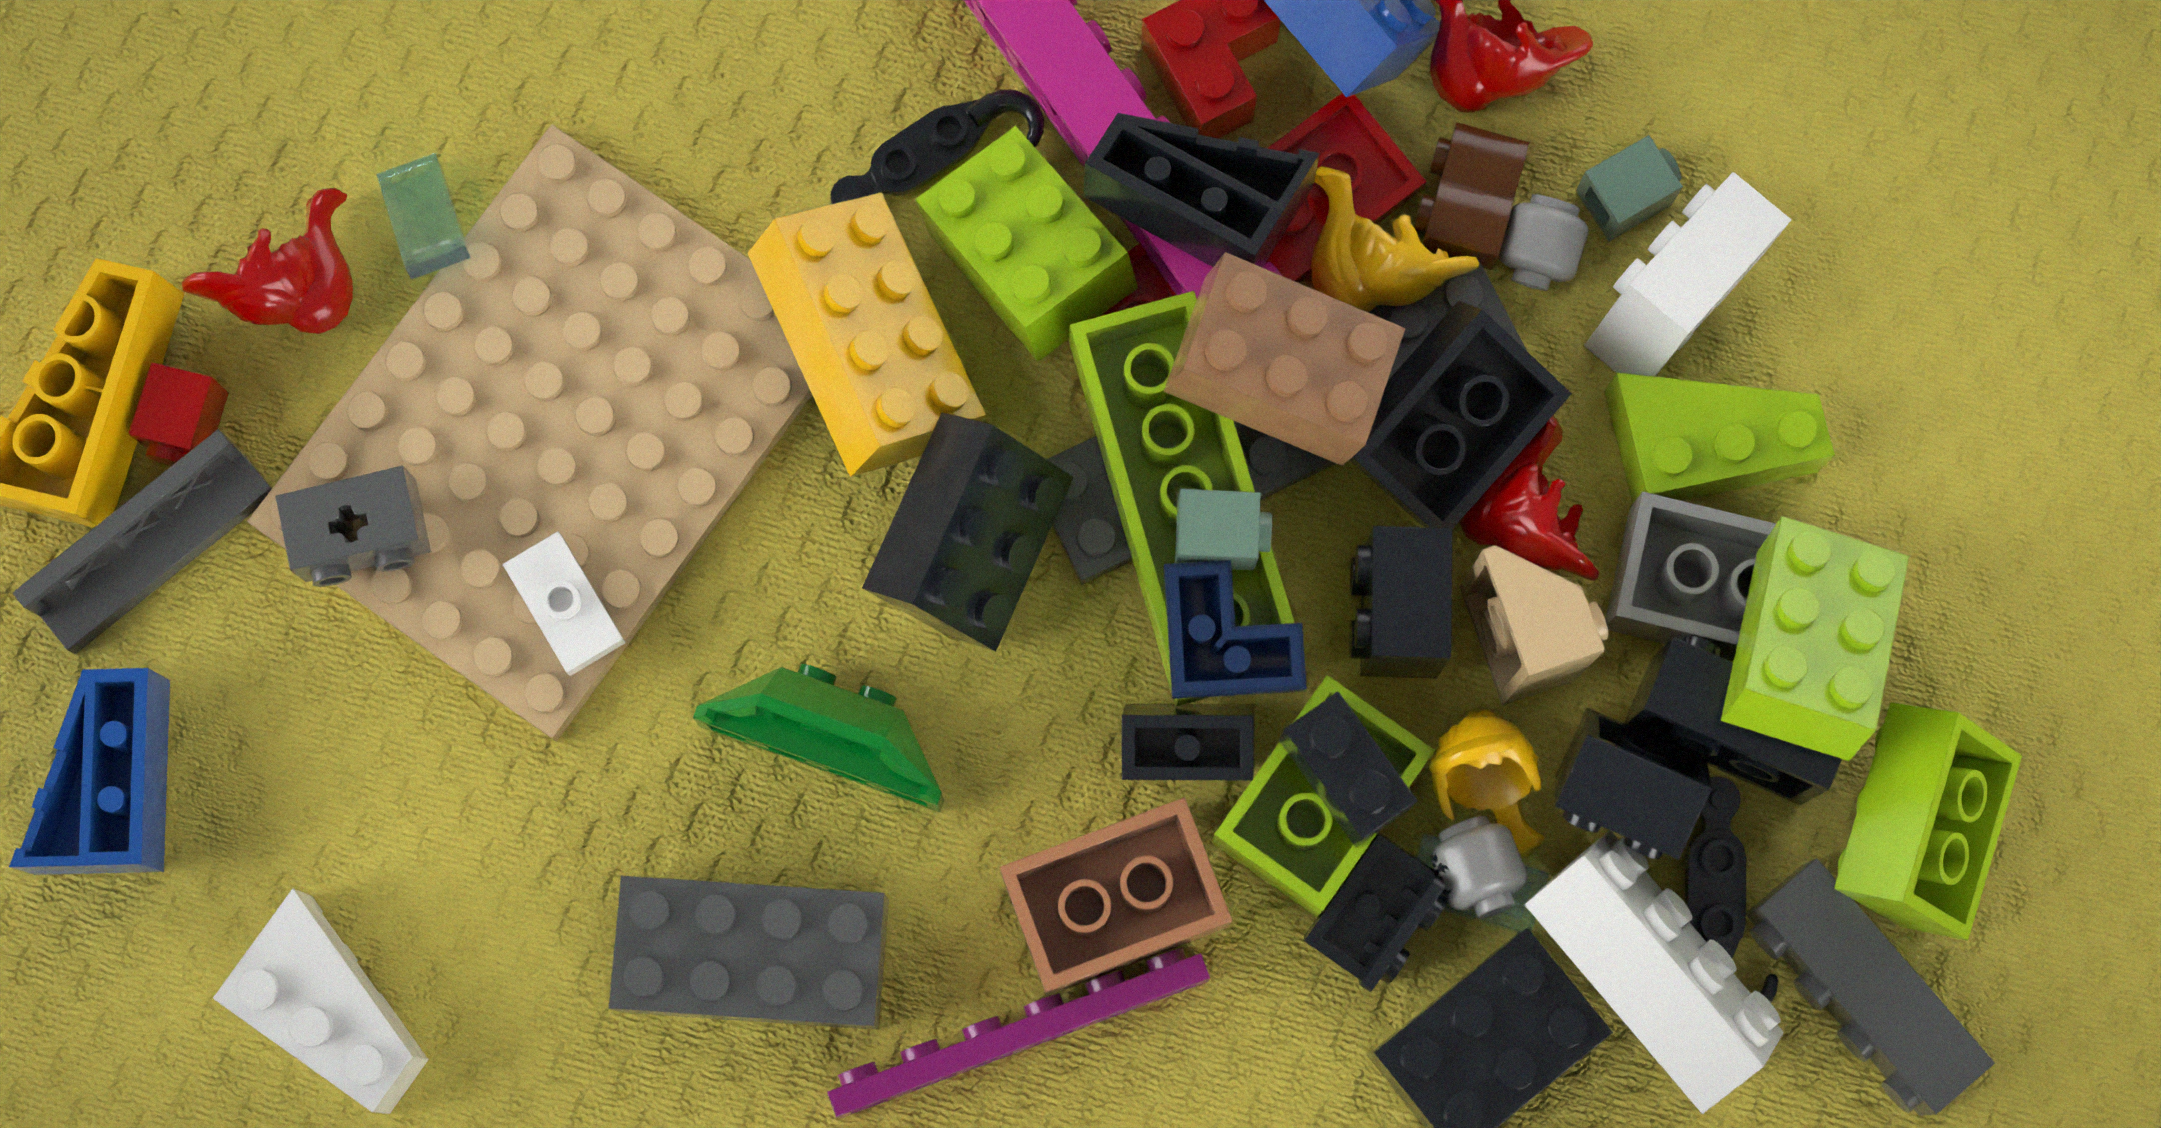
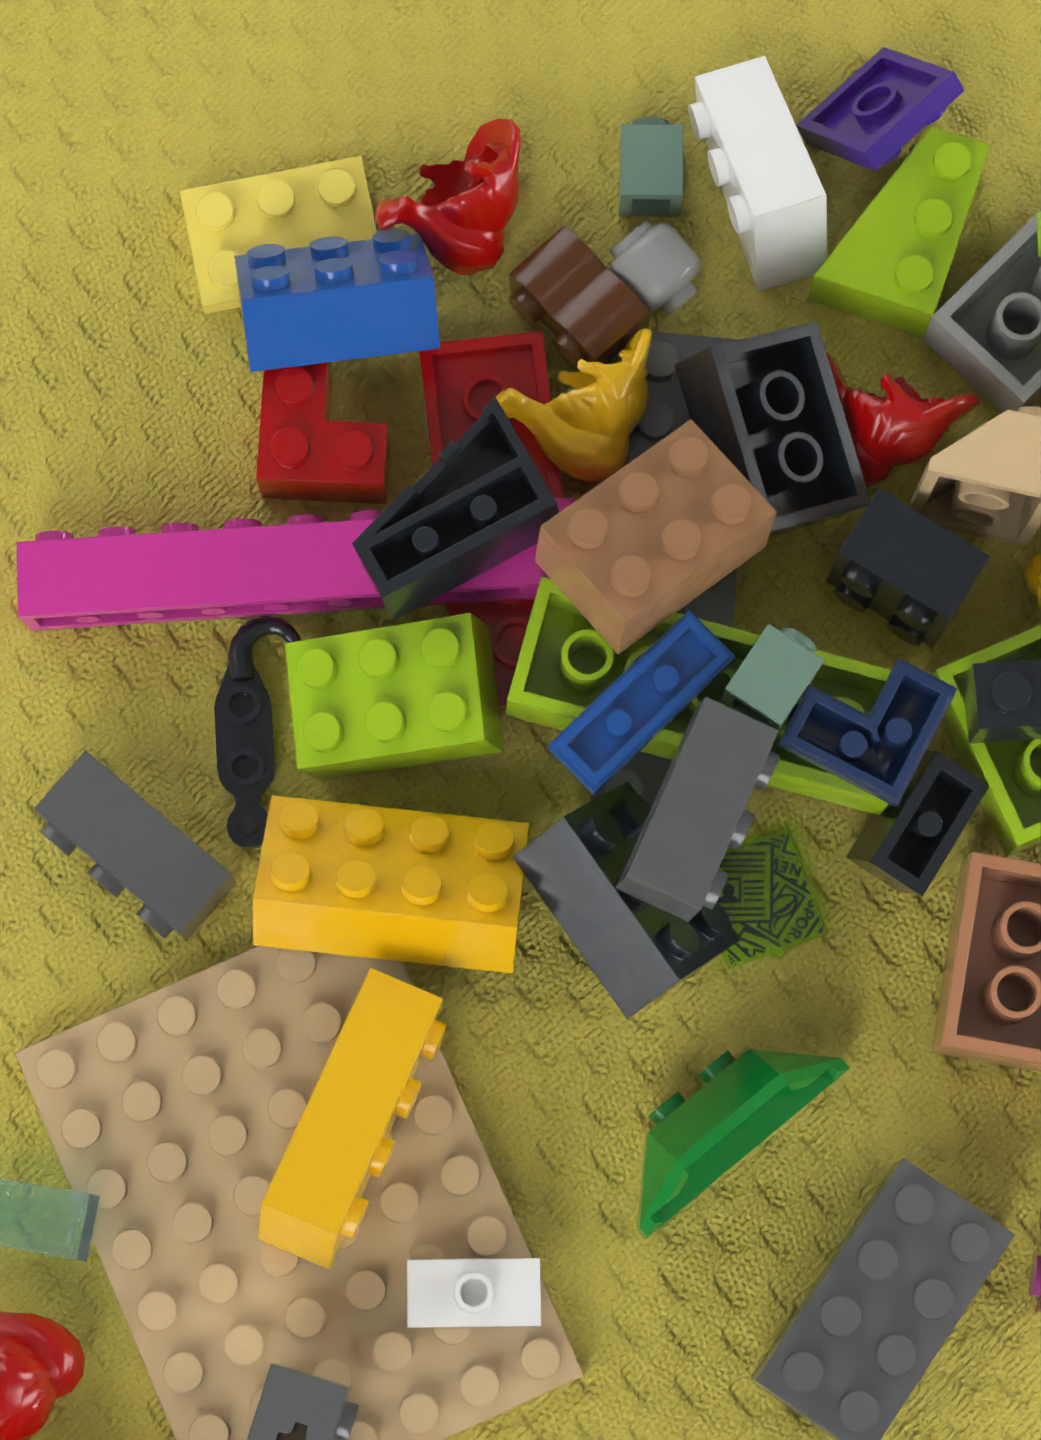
camera: 60 degrees left, 0 degrees up
(645, 411) = (348, 1119): none -> yellow wedge
(775, 114) = (133, 848): none -> dark grey brick
(1048, 653) = (768, 899): none -> clear neon green piece
(1064, 532) = (700, 811): none -> dark grey brick
(1134, 435) = (641, 702): none -> blue tile
(1809, 346) = (880, 108): none -> dark purple plate

